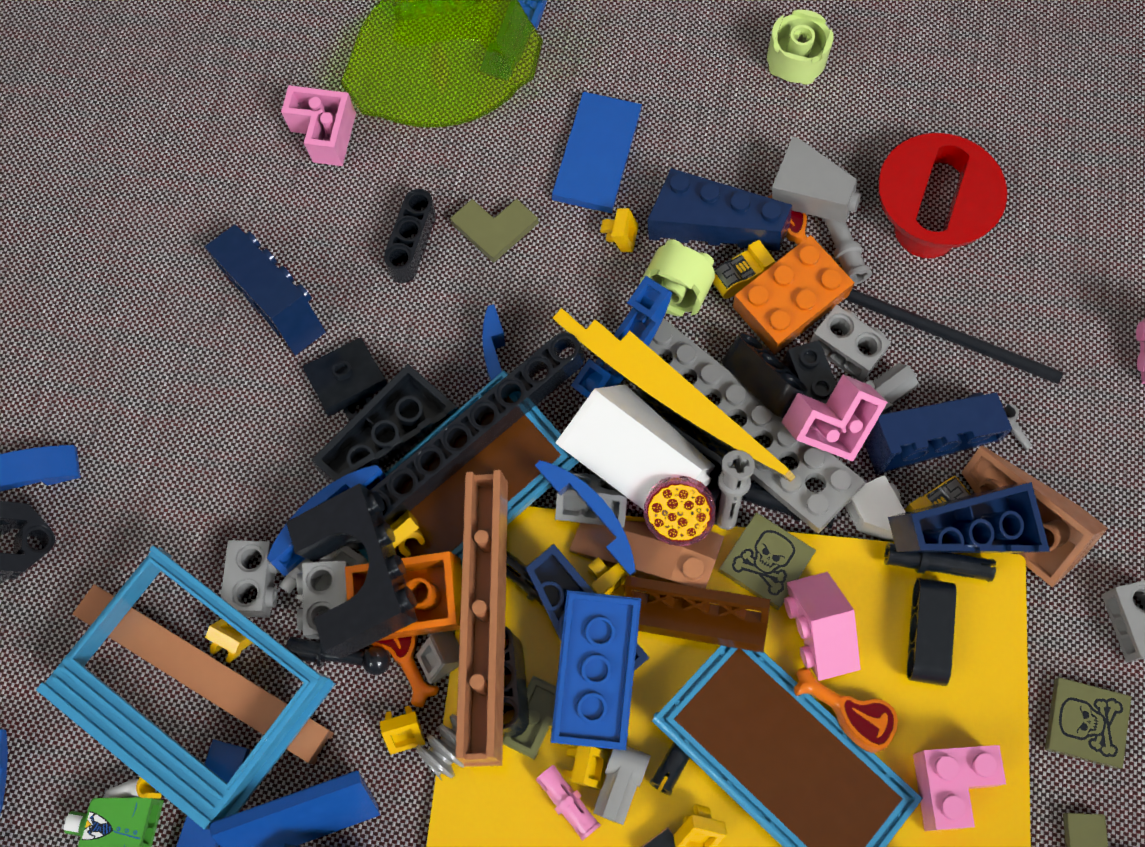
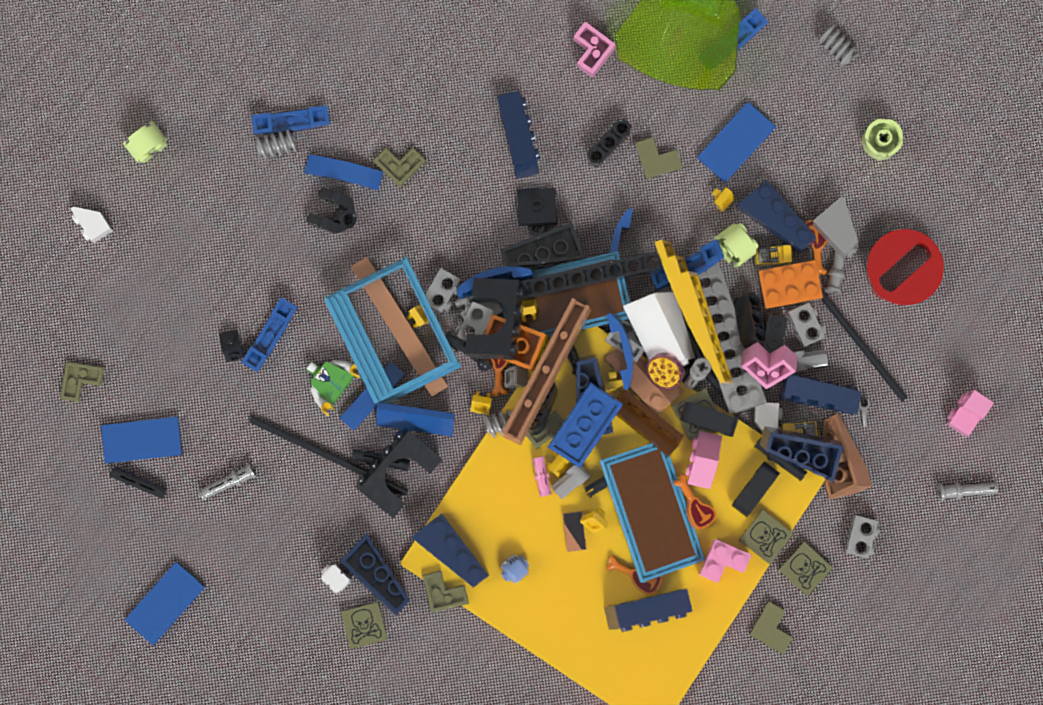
camera: 25 degrees right, 15 degrees up
(100, 430) = (400, 170): none -> olive tile
(792, 555) = (709, 419): none -> black beam
(995, 703) = (766, 536): none -> olive tile

